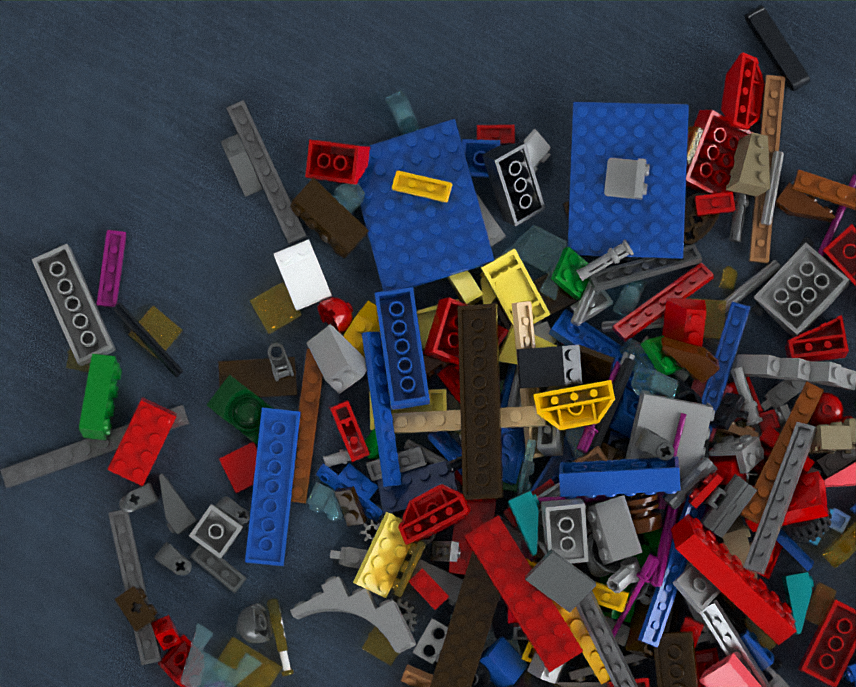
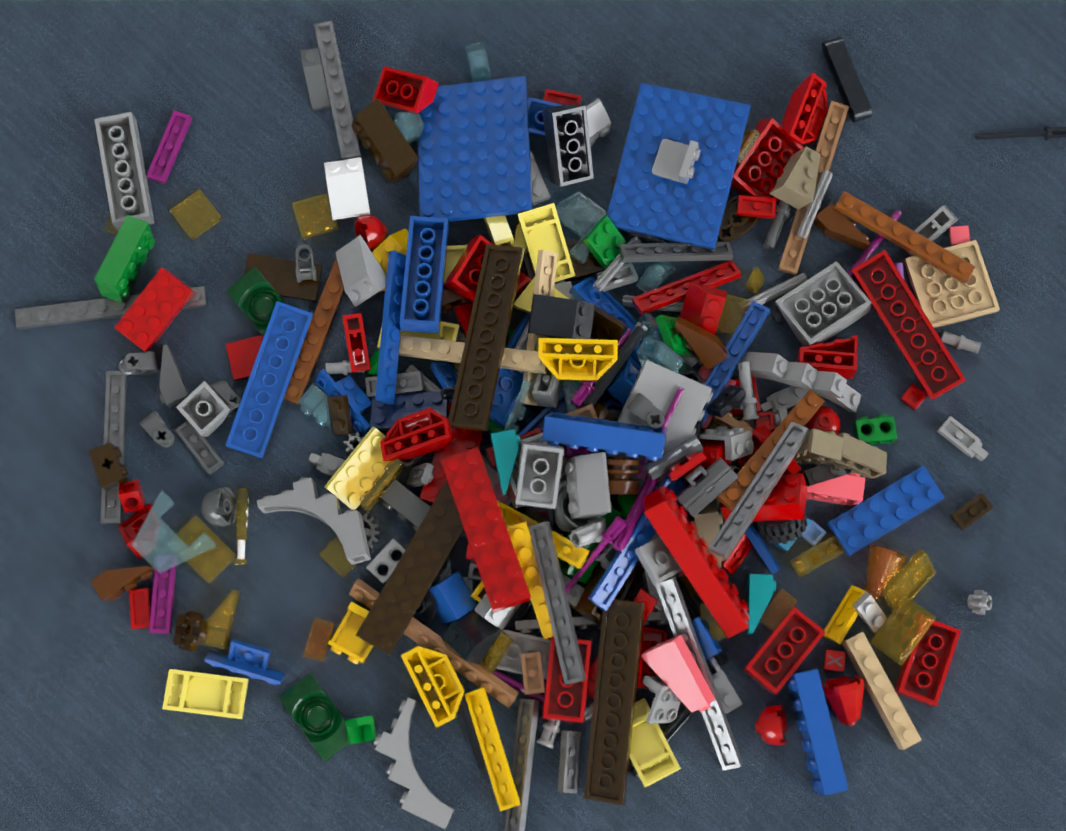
camera: 10 degrees right, 5 degrees down
(148, 340) = (186, 218): black axle -> none
(421, 186) = (479, 128): yellow plate -> none
(428, 589) = (396, 509): red plate -> none
(560, 580) = (523, 521): dark grey tile -> none
(613, 256) = (647, 230): light grey pin -> none

